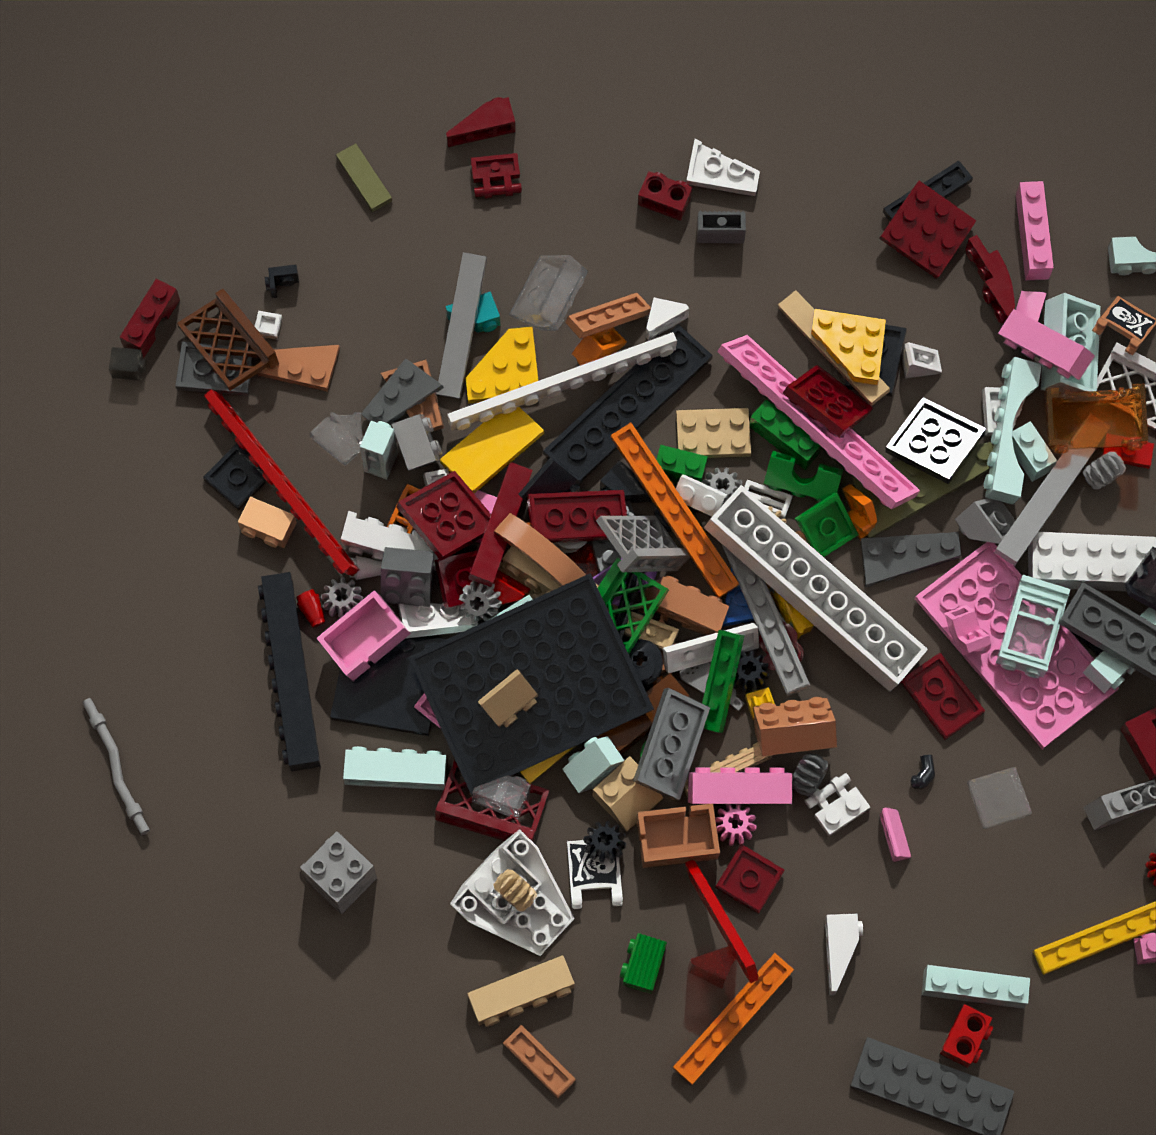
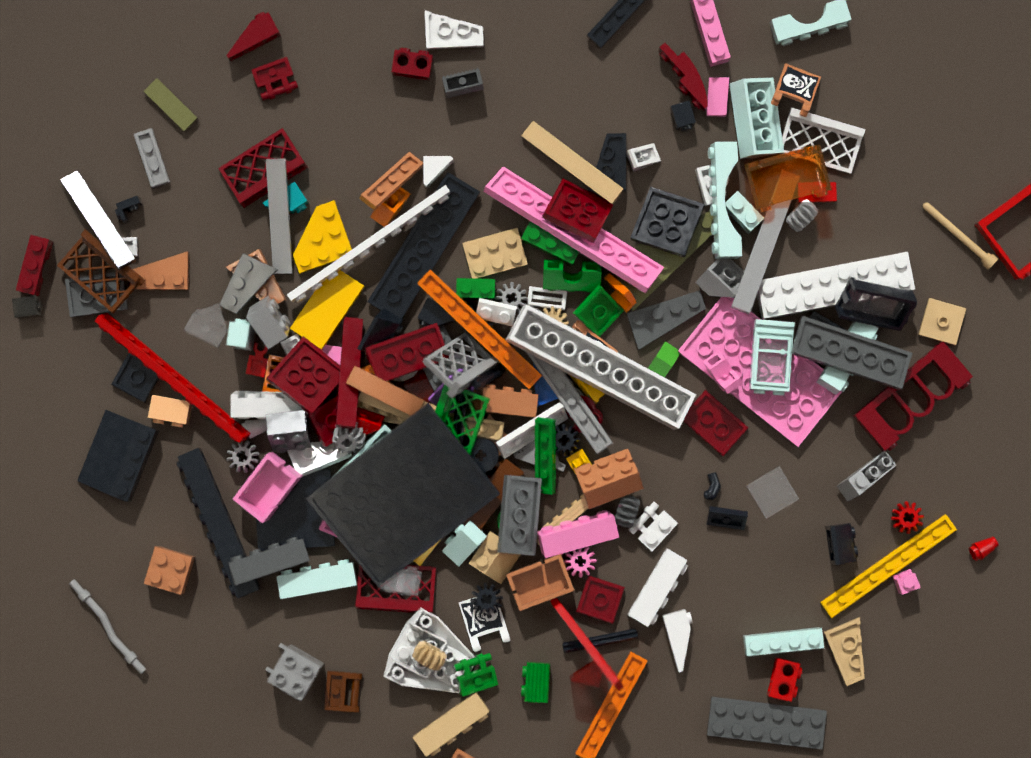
camera: 10 degrees left, 15 degrees up
(188, 563) = (118, 456): none -> black slope
(213, 713) = (169, 570): none -> nougat brick
(241, 282) = (98, 220): none -> tile
(311, 607) = (221, 468): red cone -> none
(324, 232) = (151, 158): none -> light grey tile
(340, 727) = (268, 561): none -> dark grey brick
(384, 913) = (337, 689): none -> reddish brown plate
(389, 493) = (257, 364): none -> red plate
(443, 294) = (260, 188): none -> dark red fence
(508, 699) = (389, 515): tan slope -> none
(549, 292) = (340, 168): clear slope -> none
(568, 941) = (476, 680): none -> green plate
(671, 569) = (487, 377): none -> black axle
(747, 932) = (601, 640): none -> black axle
(826, 880) = (657, 587): none -> white brick
(852, 342) = (586, 157): yellow plate -> none
(894, 834) = (701, 539): bright pink slope -> none
(898, 602) = (664, 359): none -> bright green slope
(927, 229) = (625, 44): dark red plate -> none
(934, 814) = (727, 518): none -> black plate
(980, 325) = (683, 116): none -> black brick
(1045, 344) = (737, 126): bright pink brick -> none
(1056, 1019) = (847, 650): none -> tan wing
(1075, 879) = (841, 543): none -> black slope

